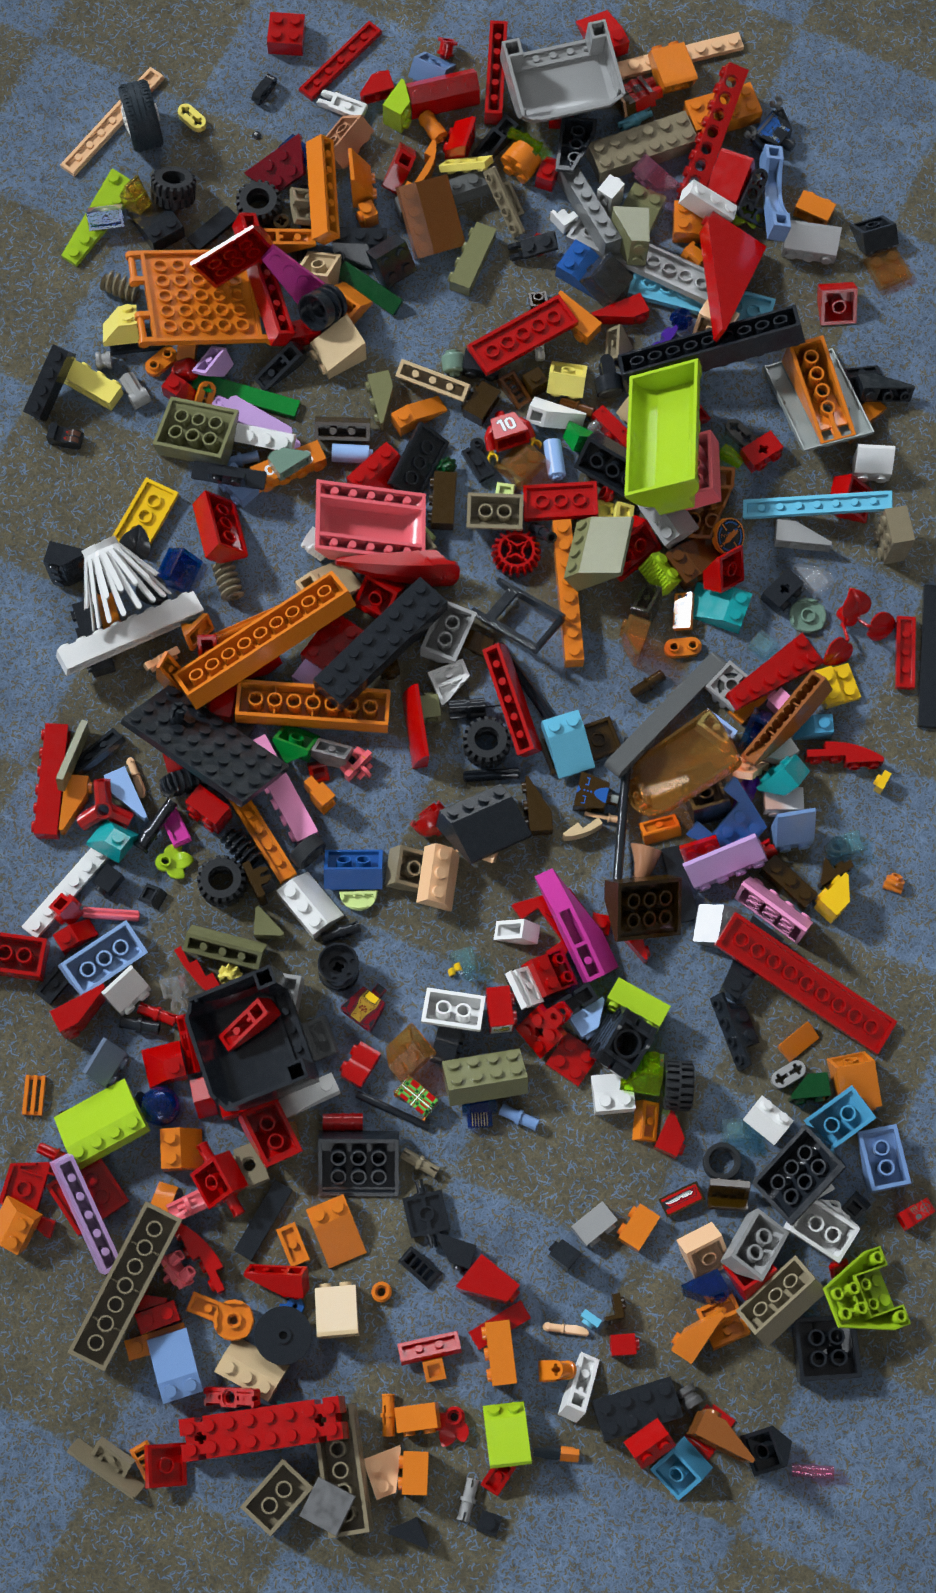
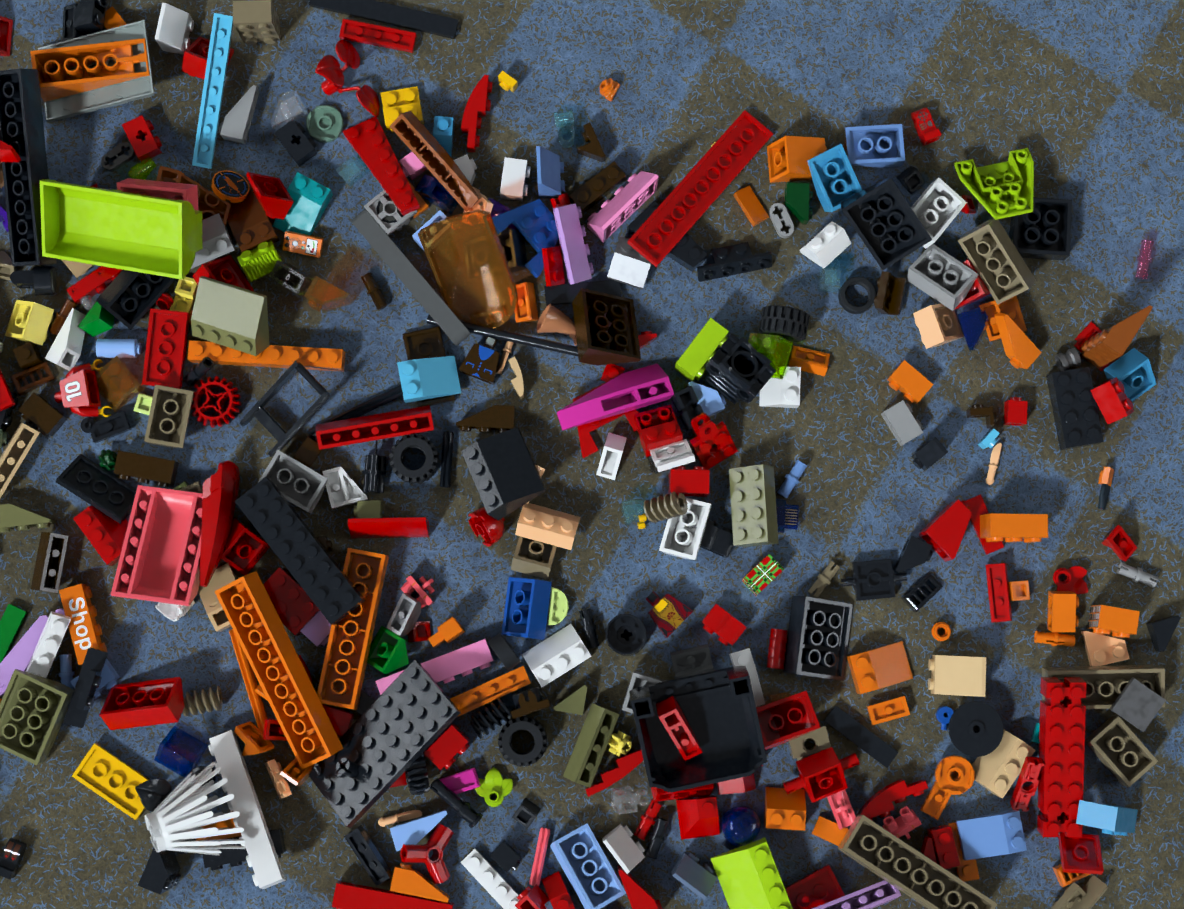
camera: 85 degrees left, 10 degrees up
(72, 755) = (371, 881): olive tile -> none
(112, 840) = (464, 848): teal slope -> none
(204, 1487) = (1109, 818): none -> wedge
(281, 1279) = (921, 724): red slope -> none
(288, 461) = (80, 624): sand green slope -> none
(350, 453) = (78, 556): light blue brick -> none
(393, 1110) = (770, 599): black piece -> none
(408, 1053) = (719, 577): clear orange slope -> none
(423, 411) = (44, 482): orange slope -> none
(470, 986) = (665, 507): none -> dark tan piece
(489, 1523) = (1159, 558): black plate -> none
(507, 1434) = (1090, 530): lime slope -> none
(556, 1370) = (1033, 477): orange piece -> none
(571, 1060) = (743, 421): red plate -> none
(579, 1388) = (1053, 460): white slope -> none
(671, 1137) = (829, 339): red slope -> none
(682, 1199) = (887, 337): slope -> none
(683, 649) = (340, 250): orange plate -> none
(768, 1448) = (1124, 296): black slope -> none
(784, 777) = (493, 173): teal slope -> none
(835, 900) = (621, 146): yellow slope -> none
(837, 1208) = (914, 196): white hand -> none

